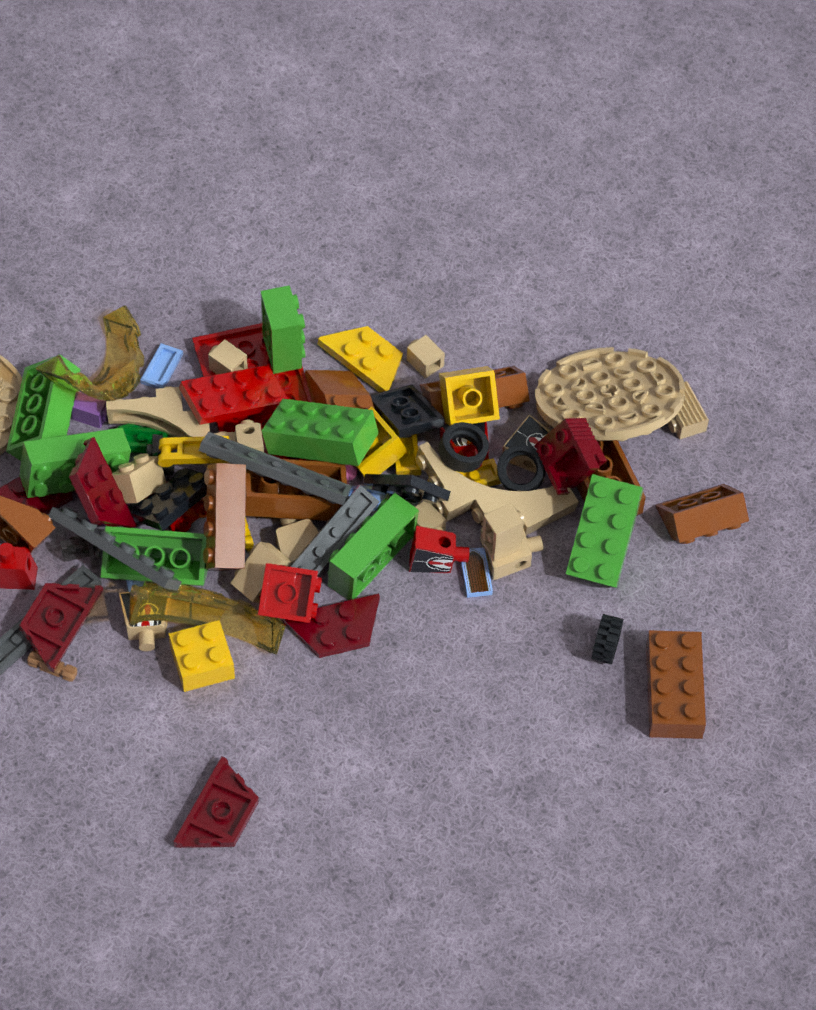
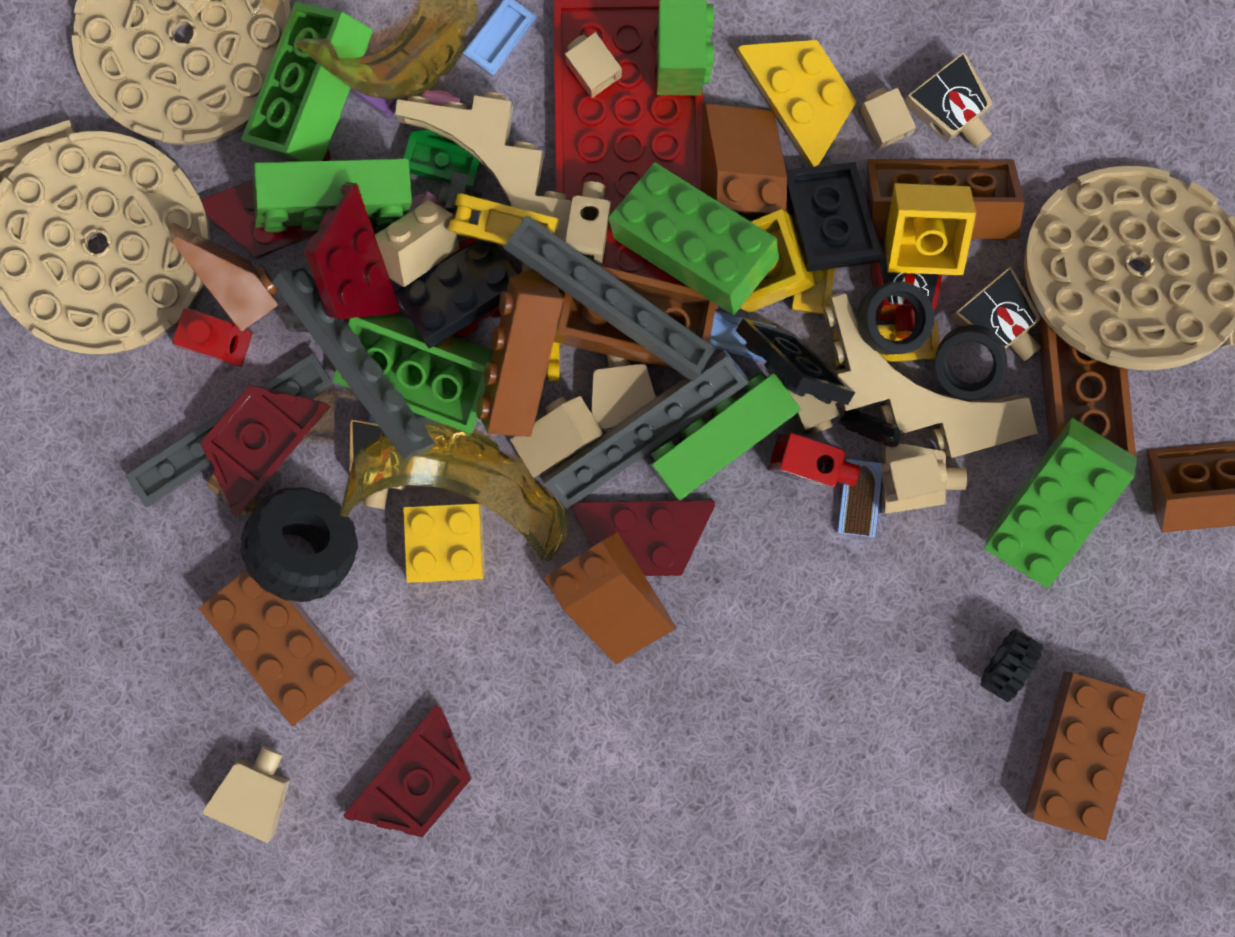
camera: 15 degrees right, 30 degrees up
(100, 742) = (277, 646): none -> dark orange brick
(102, 670) = (286, 571): none -> black tyre
(103, 845) = (251, 796): none -> tan torso
(232, 394) = (586, 131): red plate -> none
(289, 593) = (585, 491): red plate -> none
(325, 661) = (611, 599): none -> dark orange slope
(464, 339) = (953, 102): none -> torso
(467, 524) = (872, 427): none -> black axle
(570, 454) = (1048, 374): dark red piece -> none

